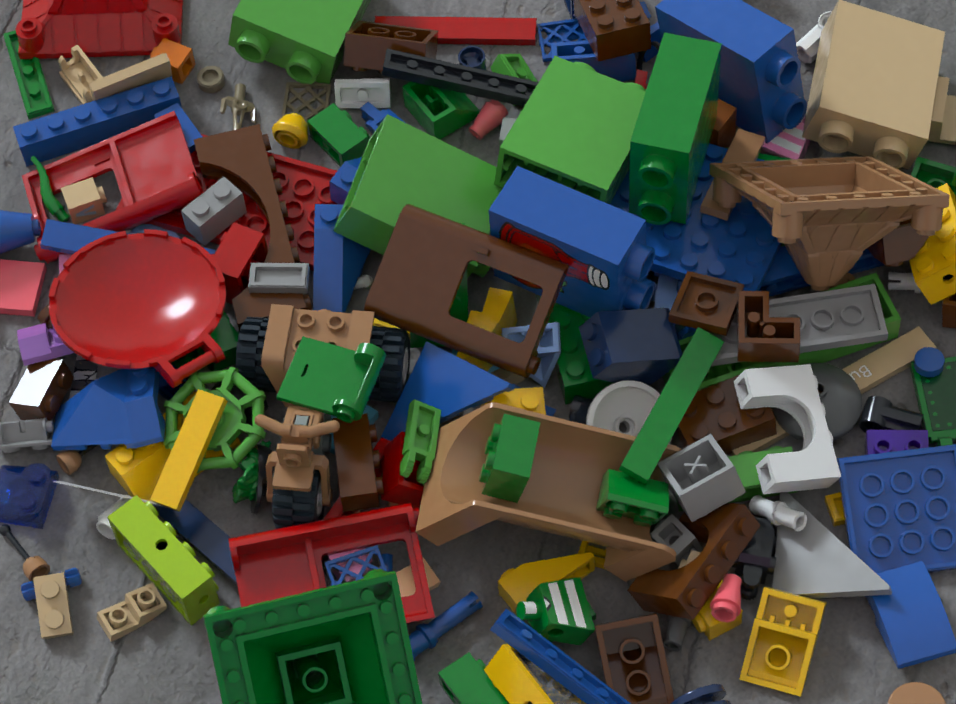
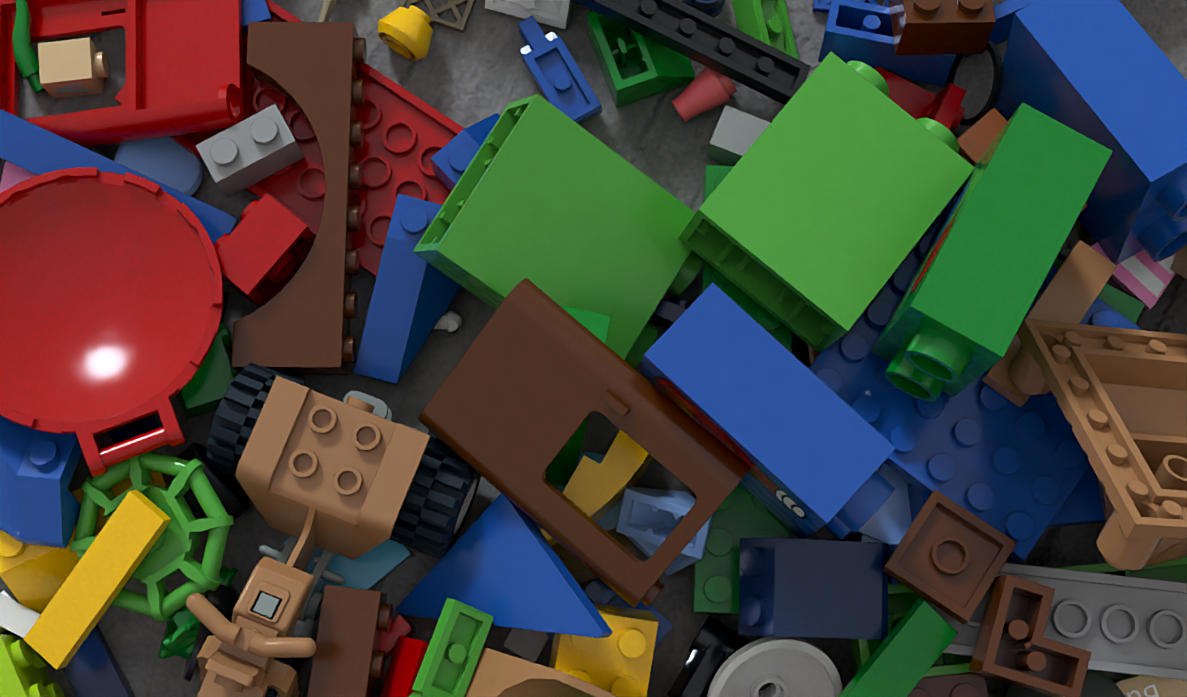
camera: 10 degrees right, 20 degrees up
(279, 278) = (311, 307): light grey tile -> none
(336, 378) = (332, 543): green door -> none
(338, 134) = (475, 62): green brick -> none

